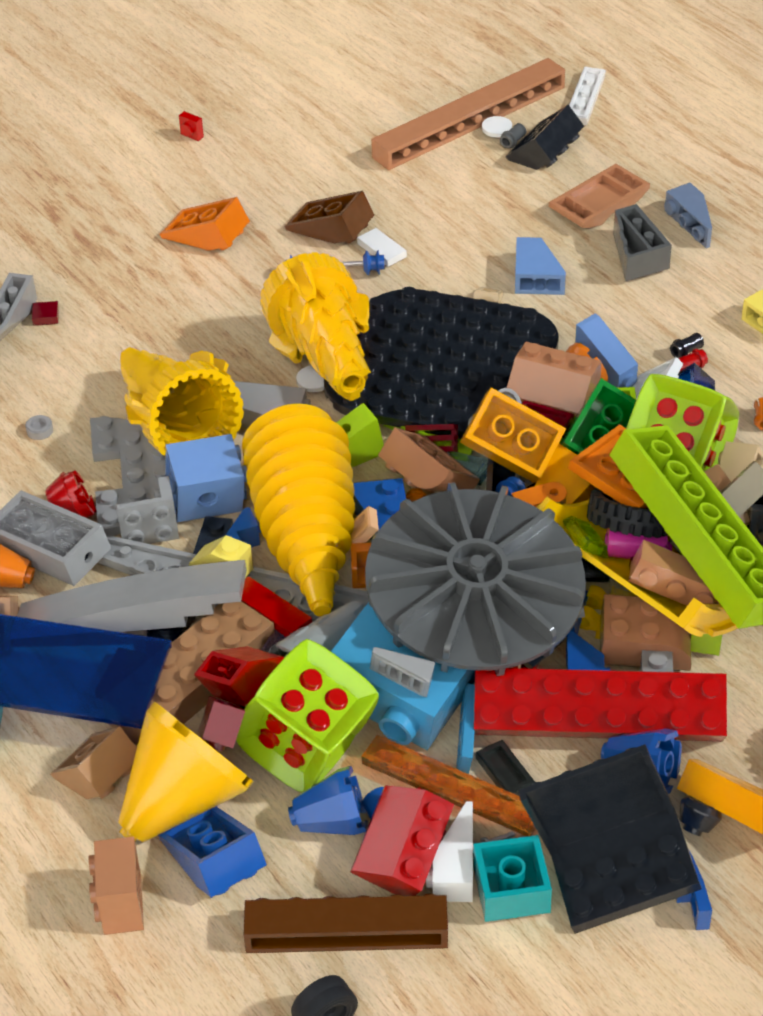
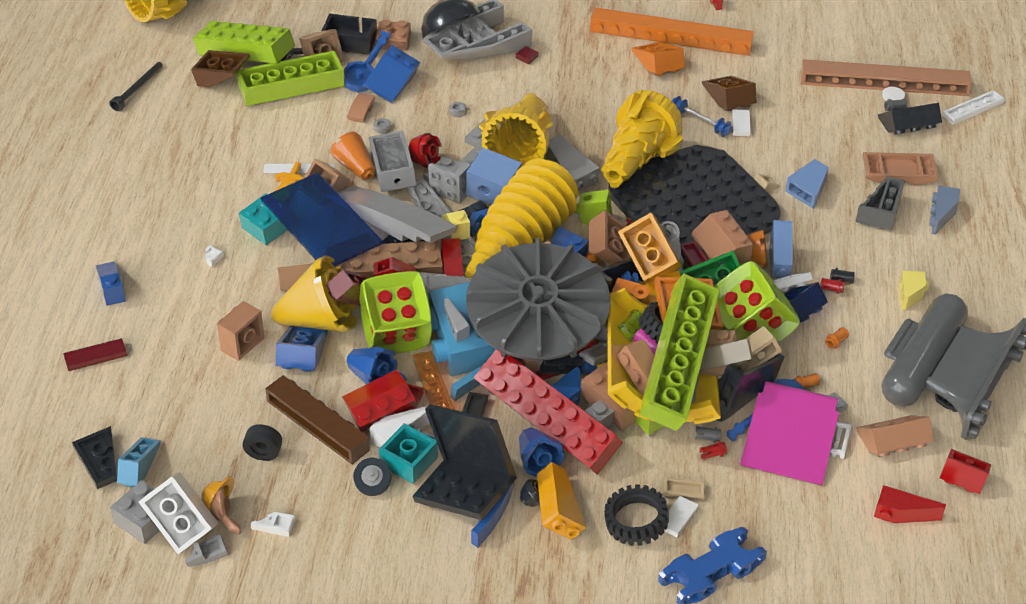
camera: 40 degrees right, 0 degrees up
(182, 190) = (671, 31): none -> orange brick
(502, 941) = (372, 476): none -> black wheel

